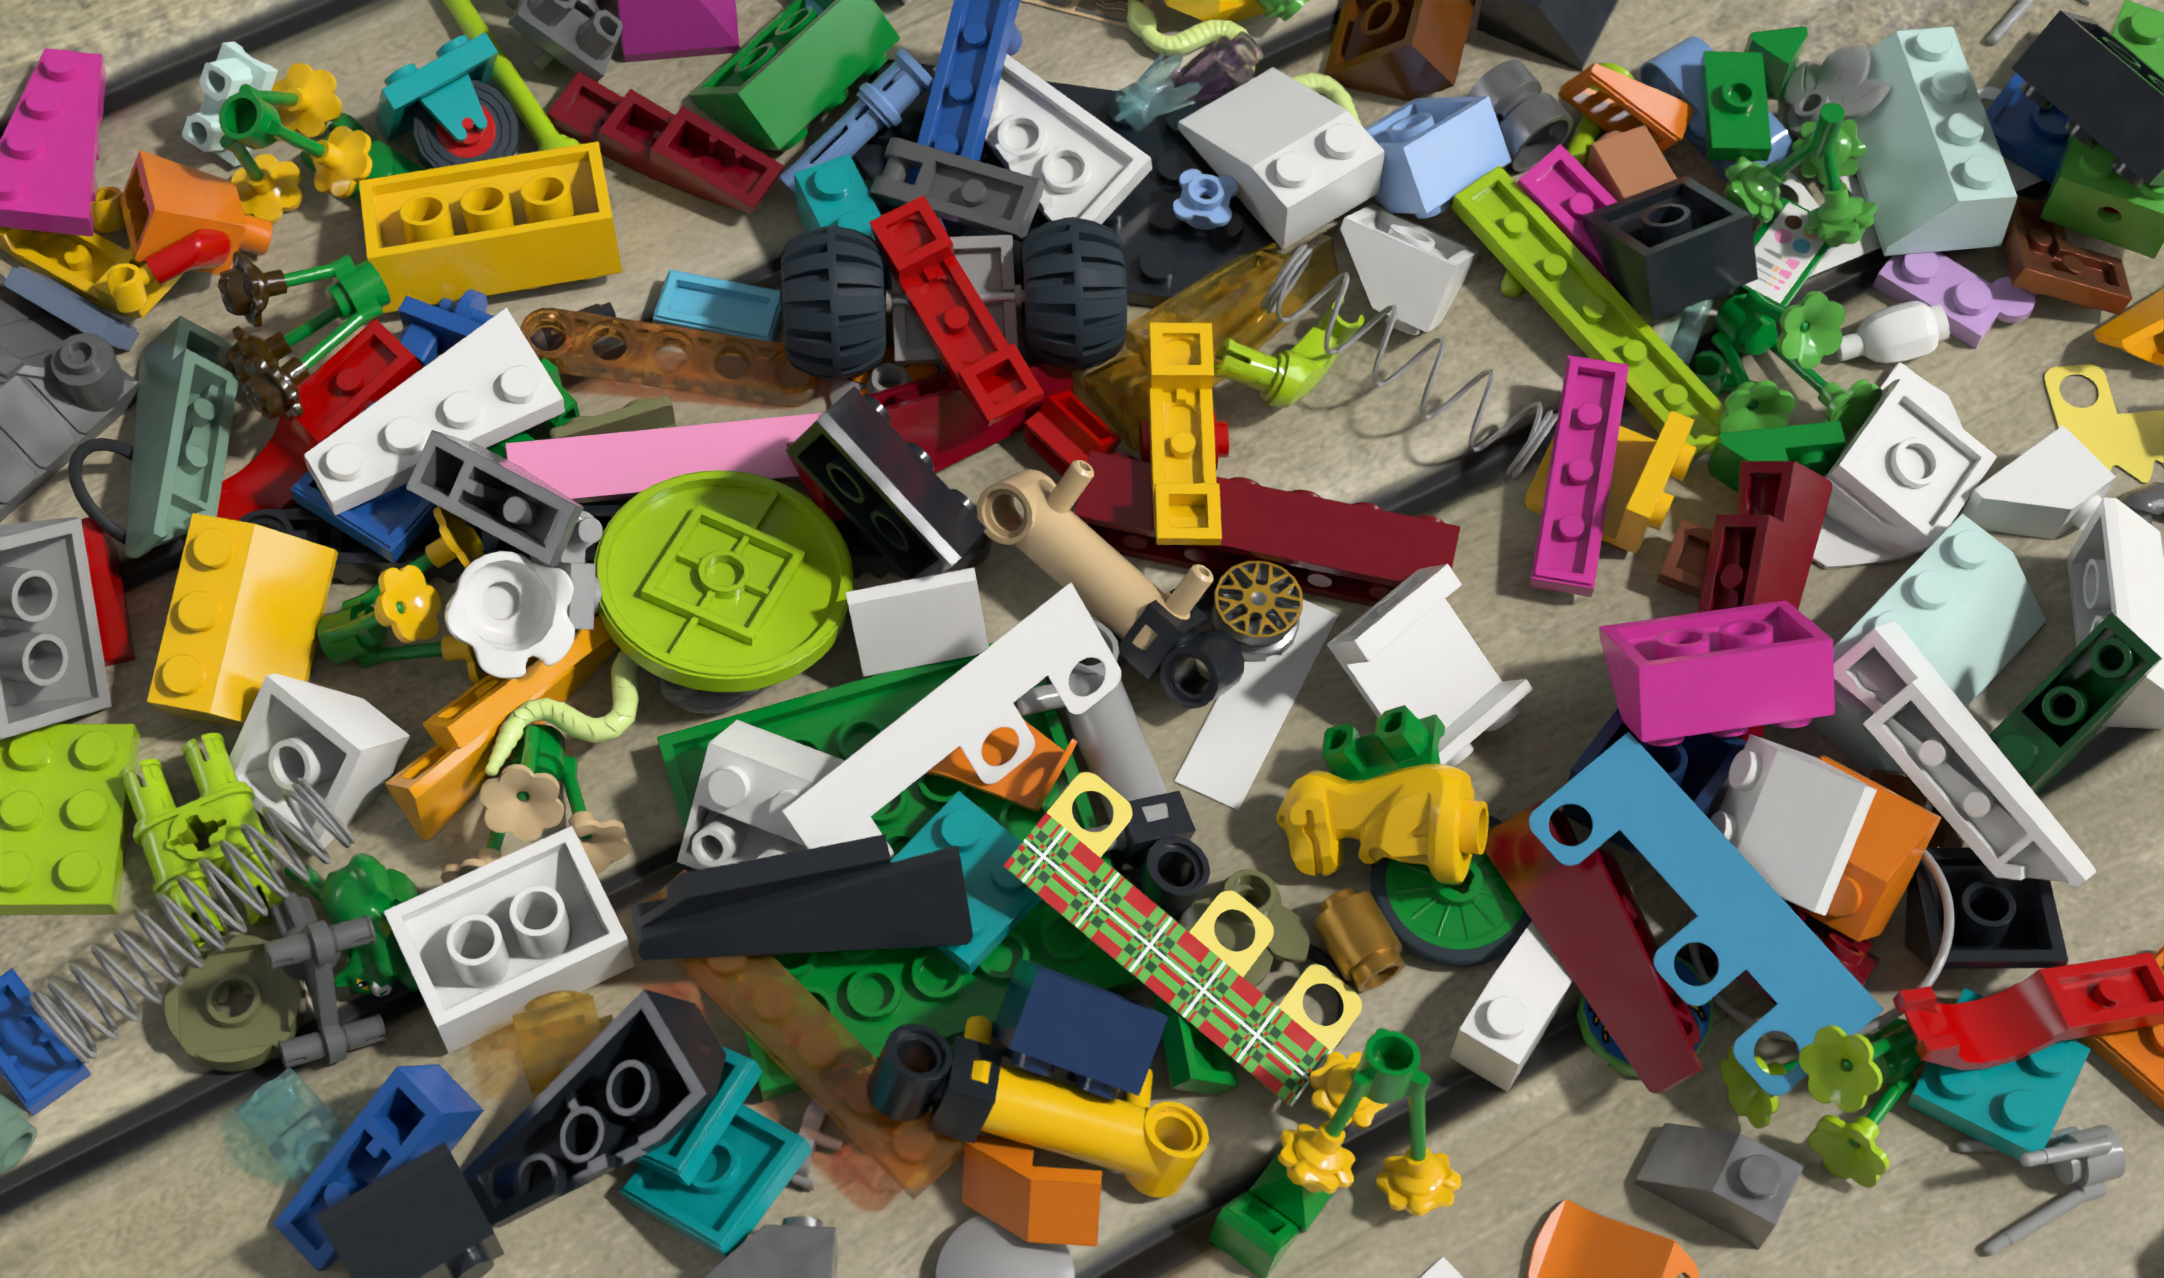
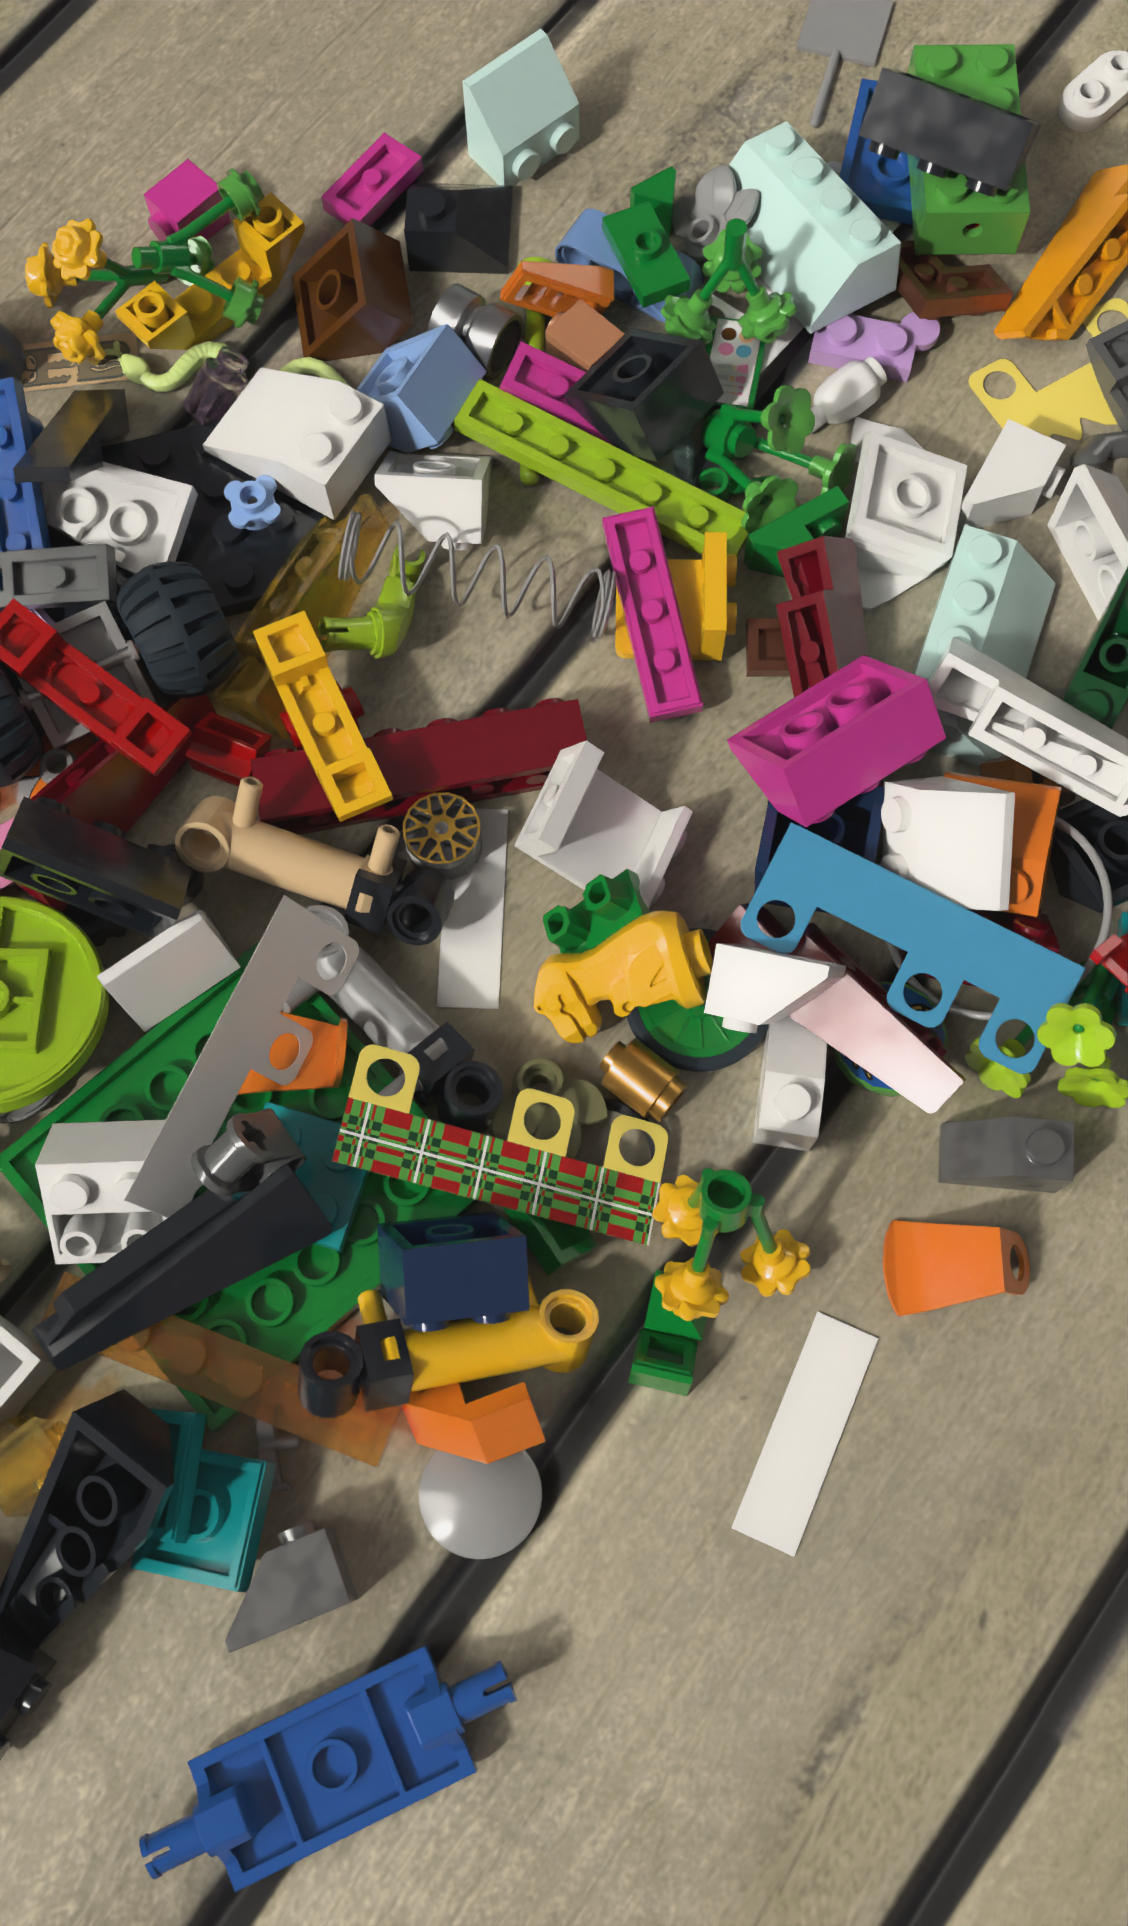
camera: 20 degrees left, 10 degrees up
(922, 819) = (246, 1153): none -> dark grey piece
(1051, 62) = (74, 437): none -> black slope
(1154, 93) = (171, 428): clear light blue piece -> none
(1529, 888) = (763, 986): none -> white slope

